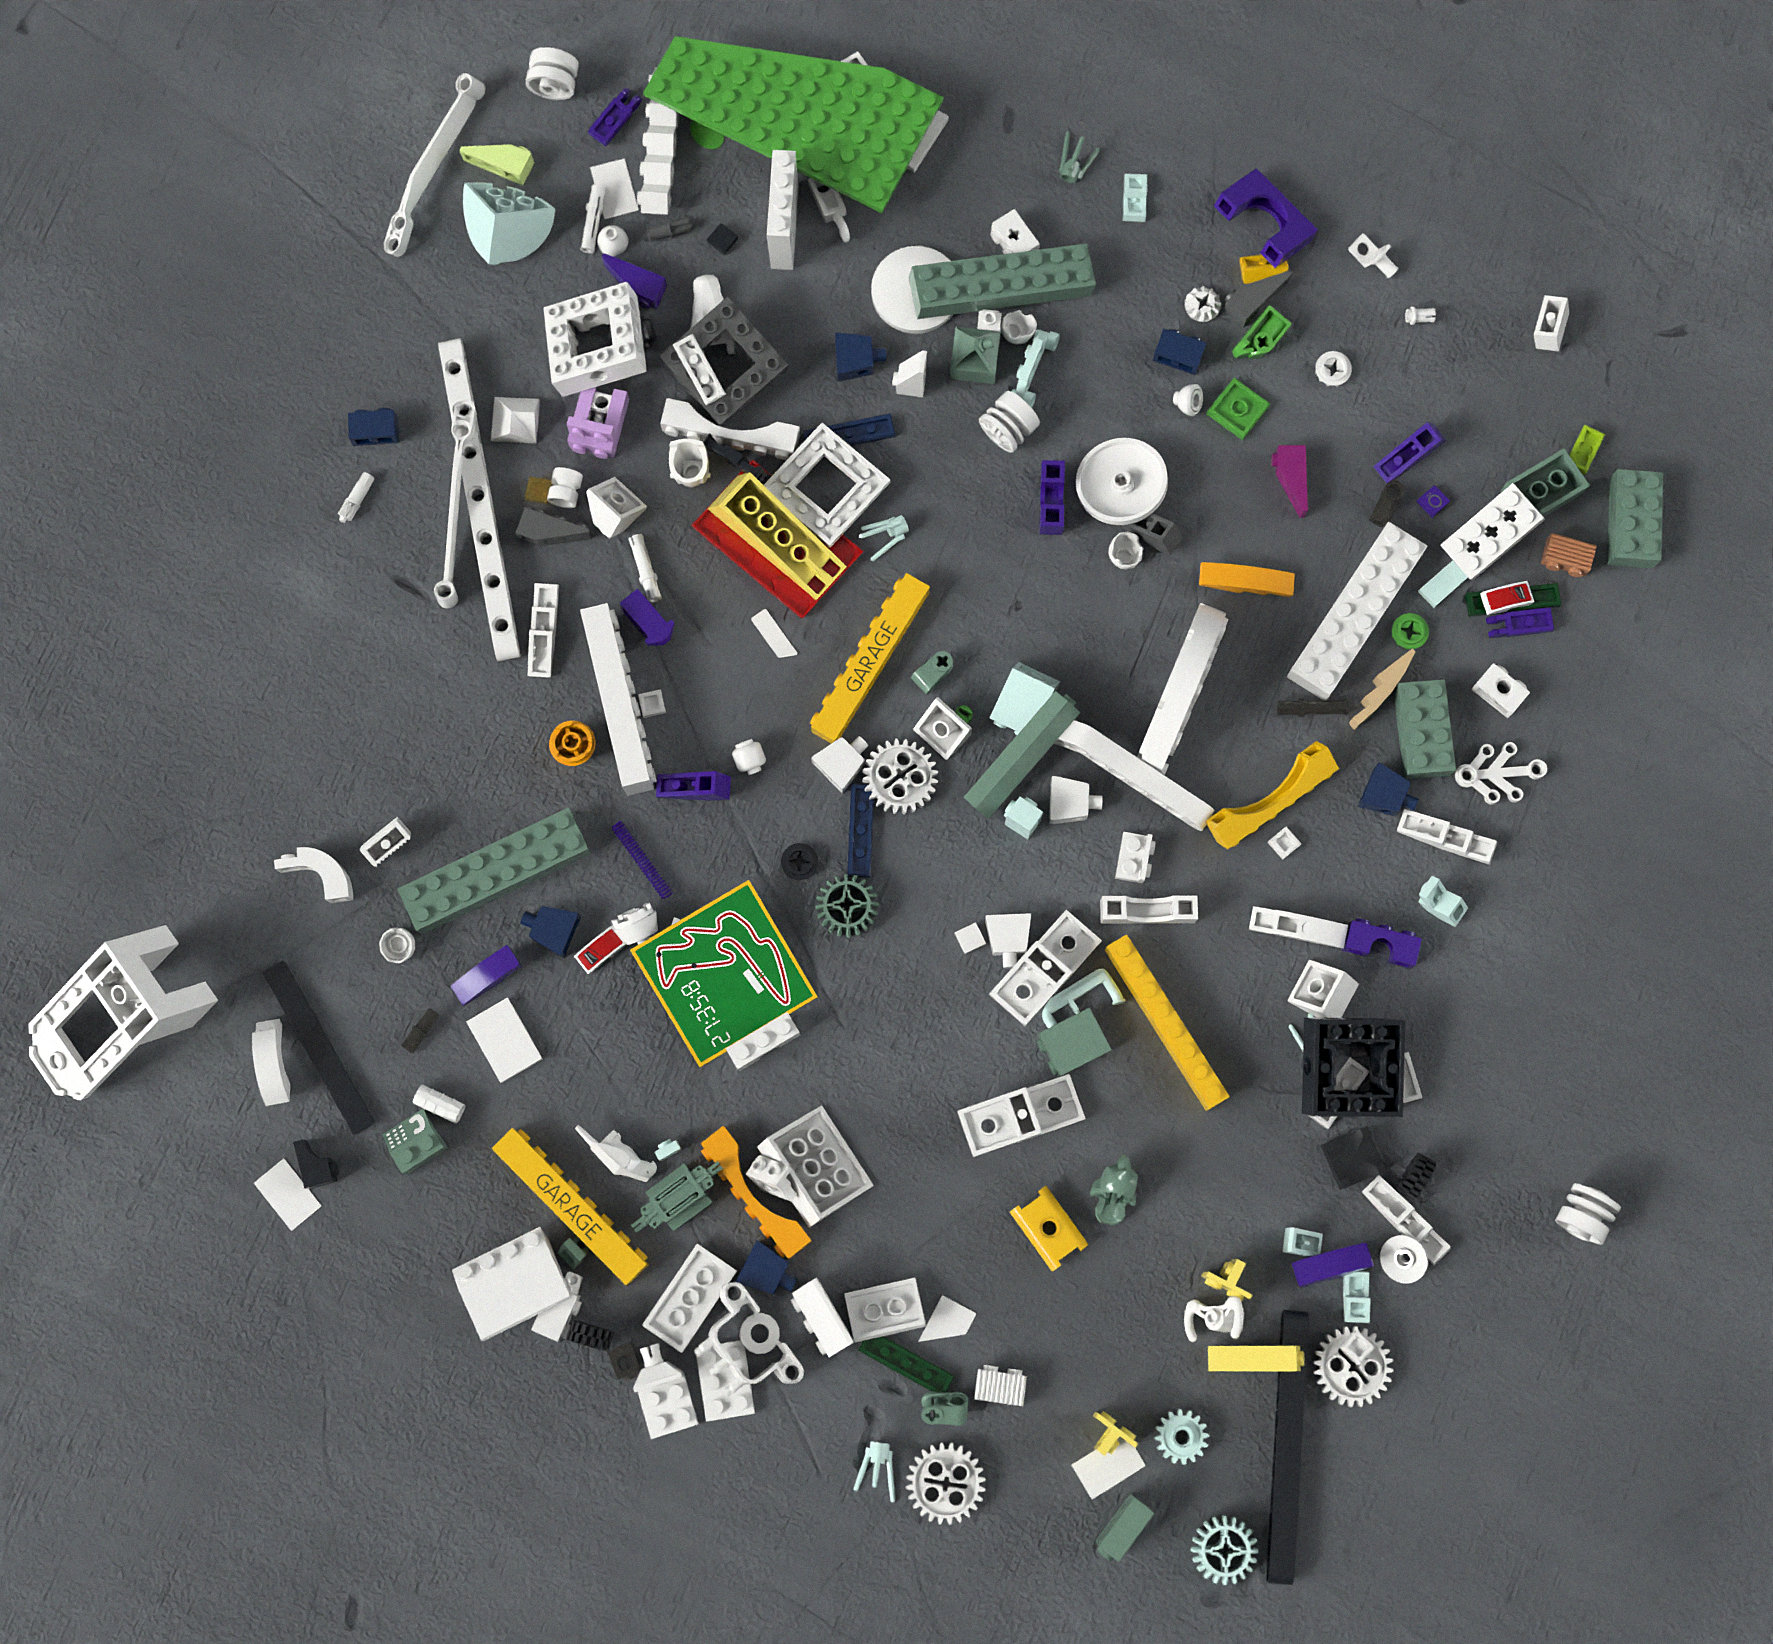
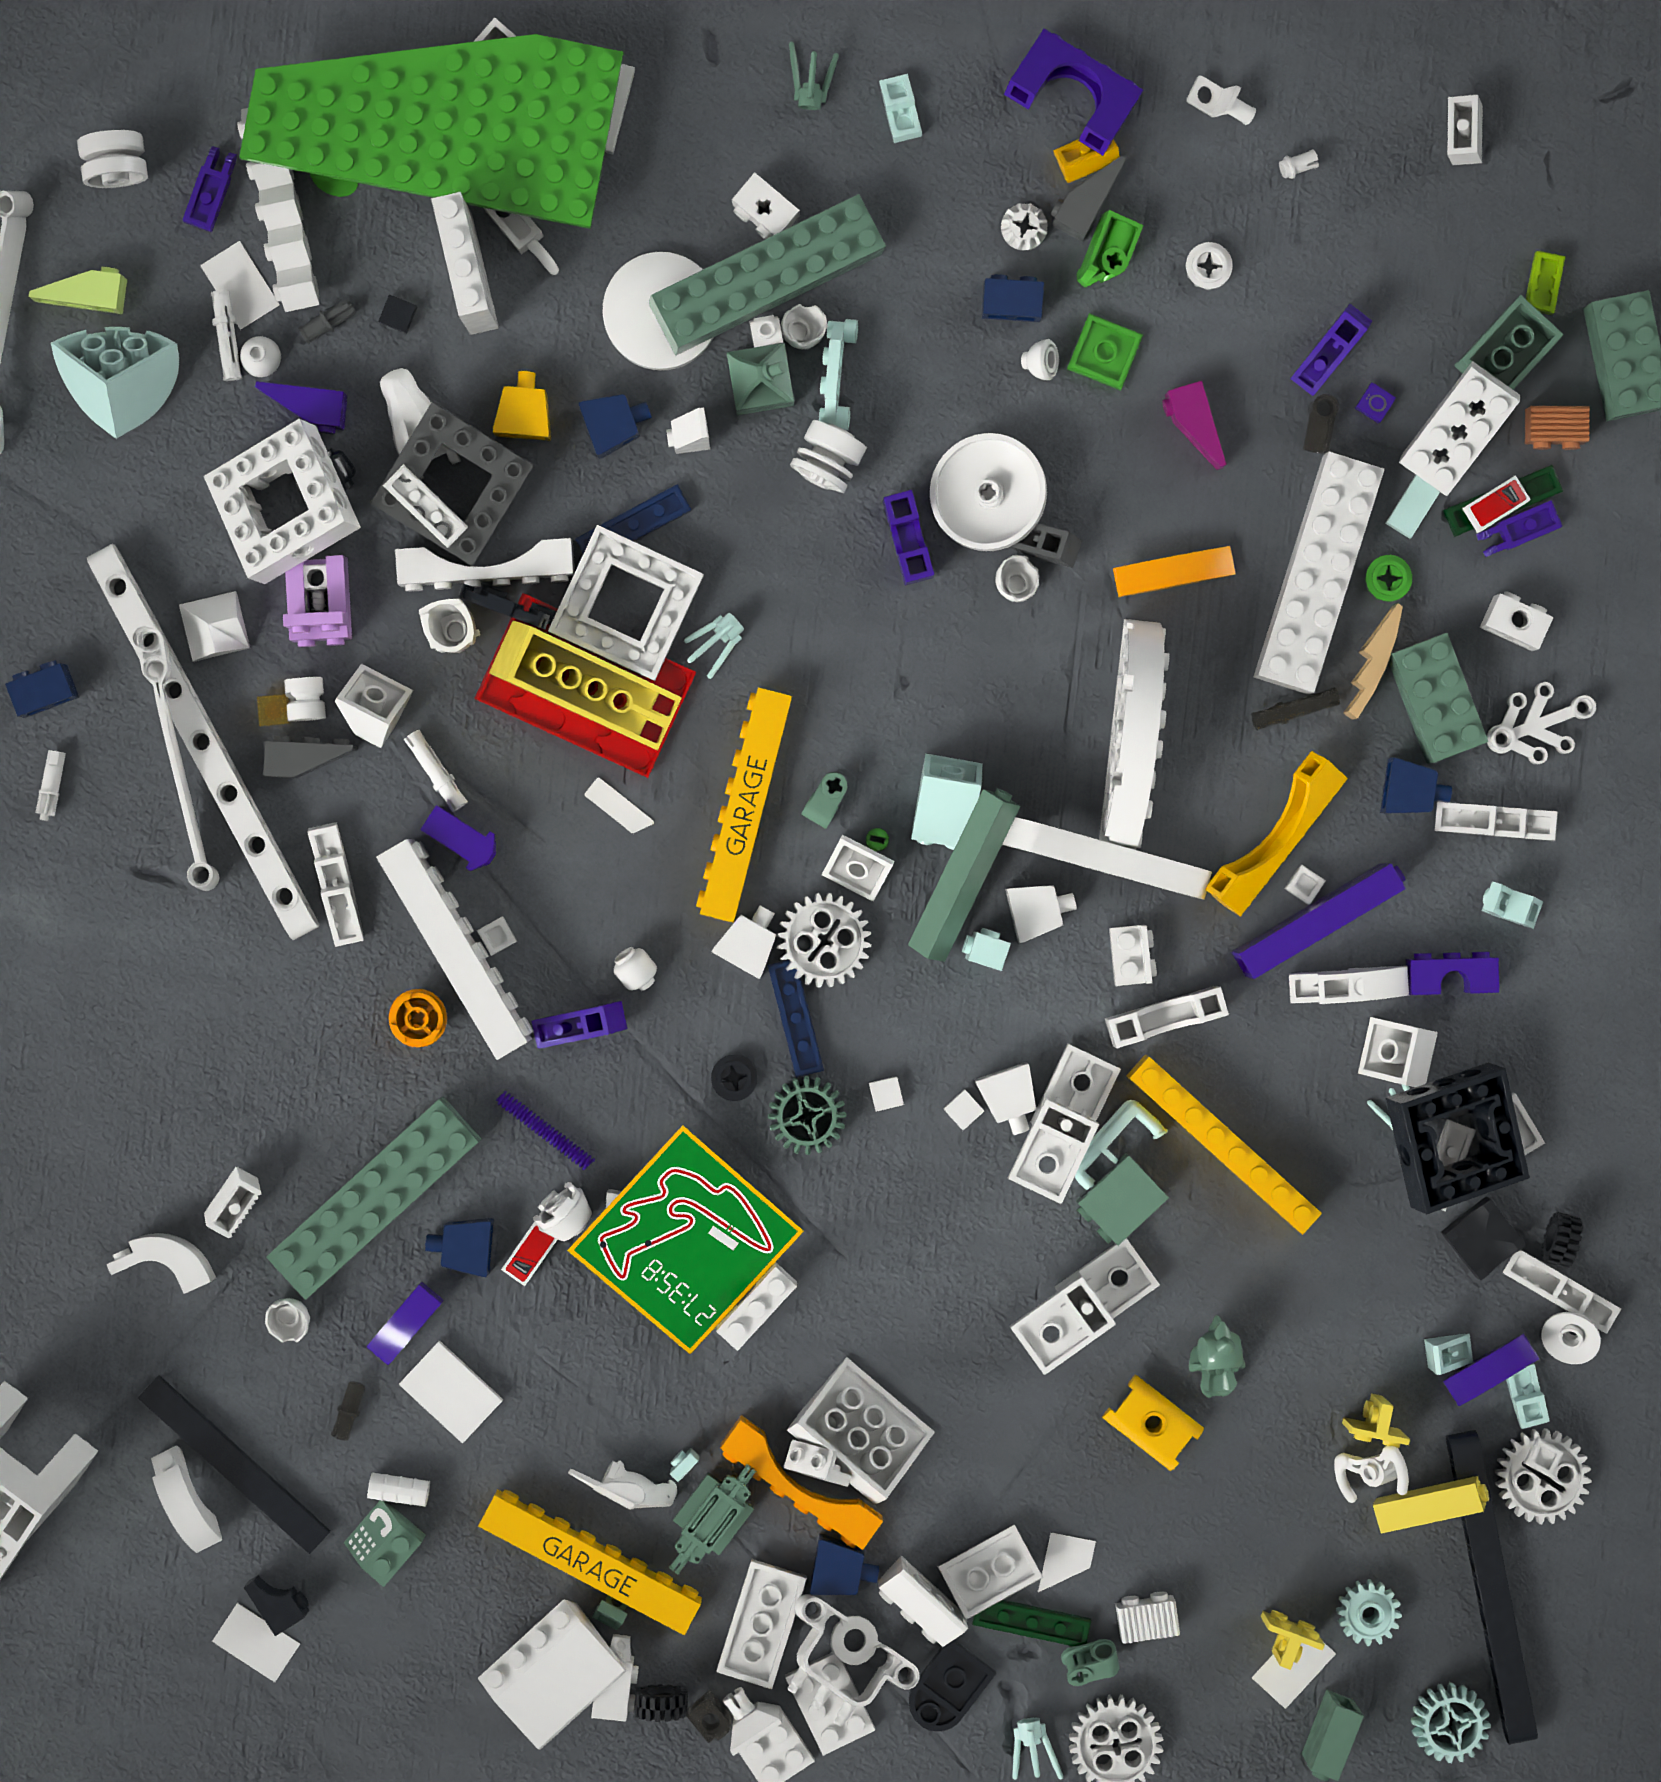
camera: 15 degrees left, 10 degrees up
(792, 330) = (523, 411): none -> yellow torso
(825, 1395) = (950, 1685): none -> black tile
(913, 908) = (886, 1093): none -> white tile
(1288, 868) = (1319, 919): none -> dark purple brick

